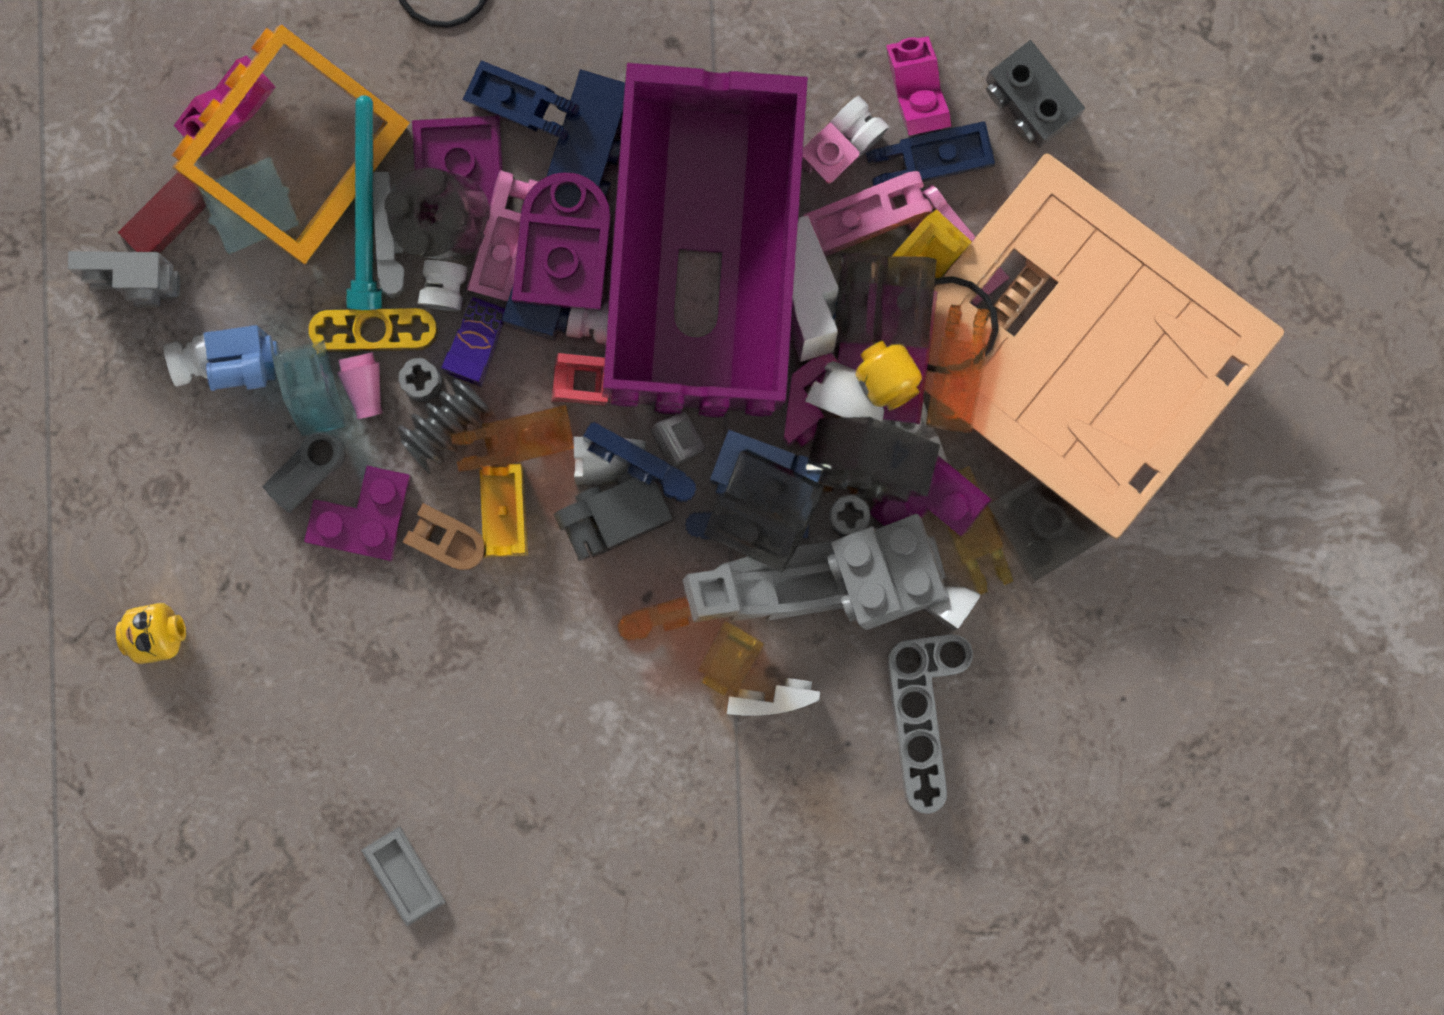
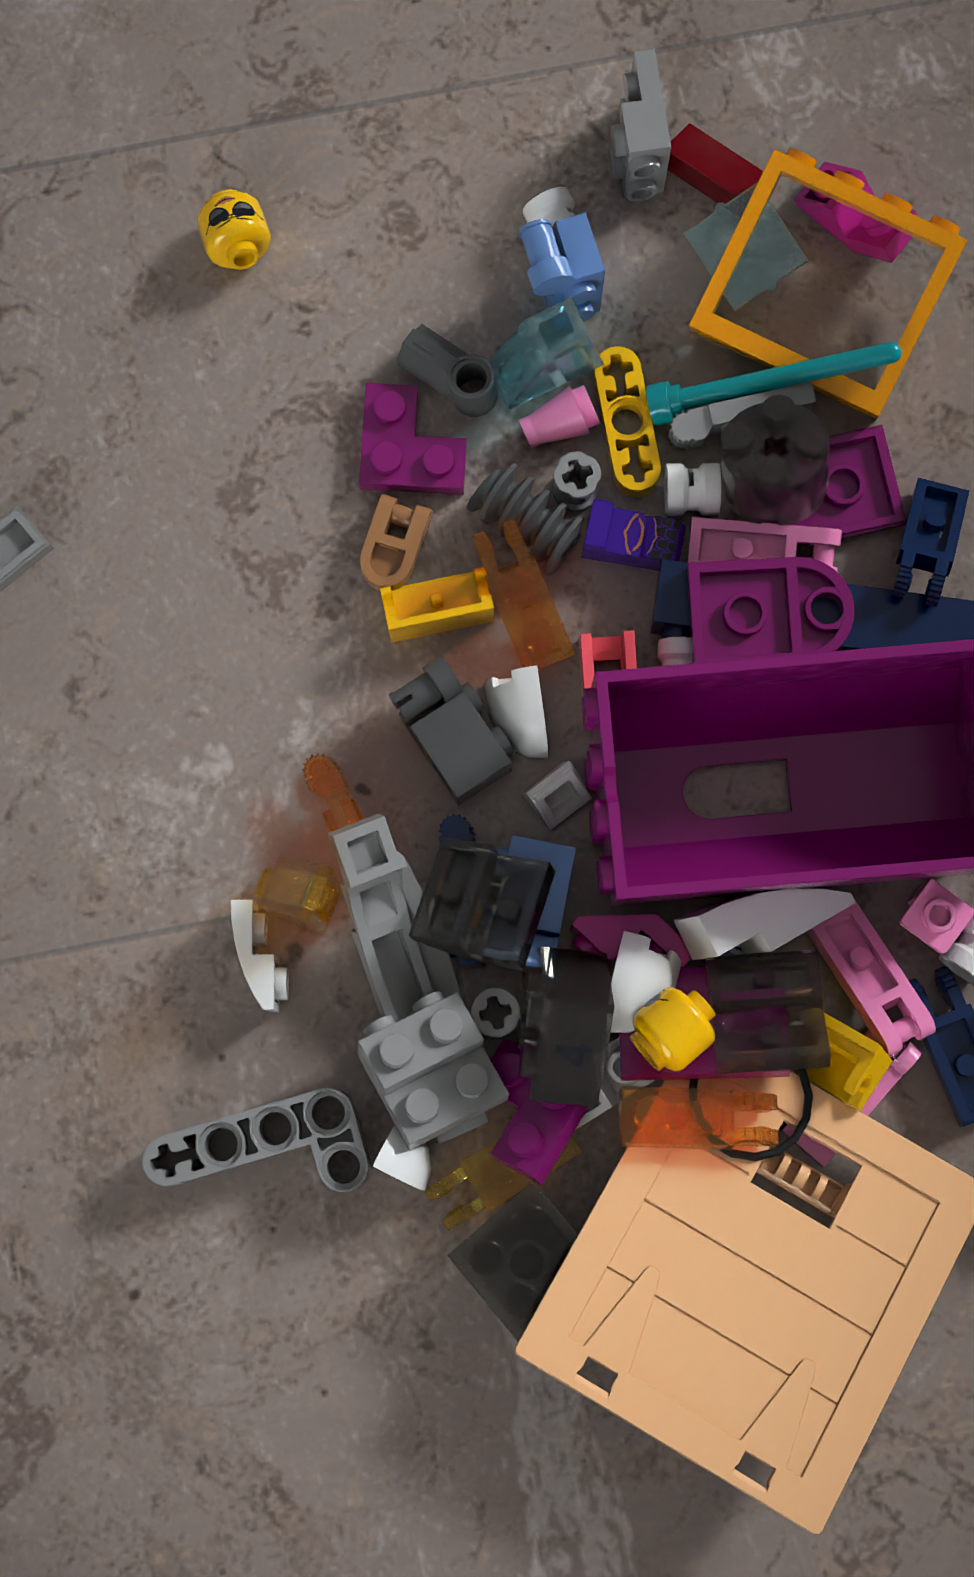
camera: 85 degrees right, 5 degrees down
(641, 463) = (515, 746): dark blue hinge -> none

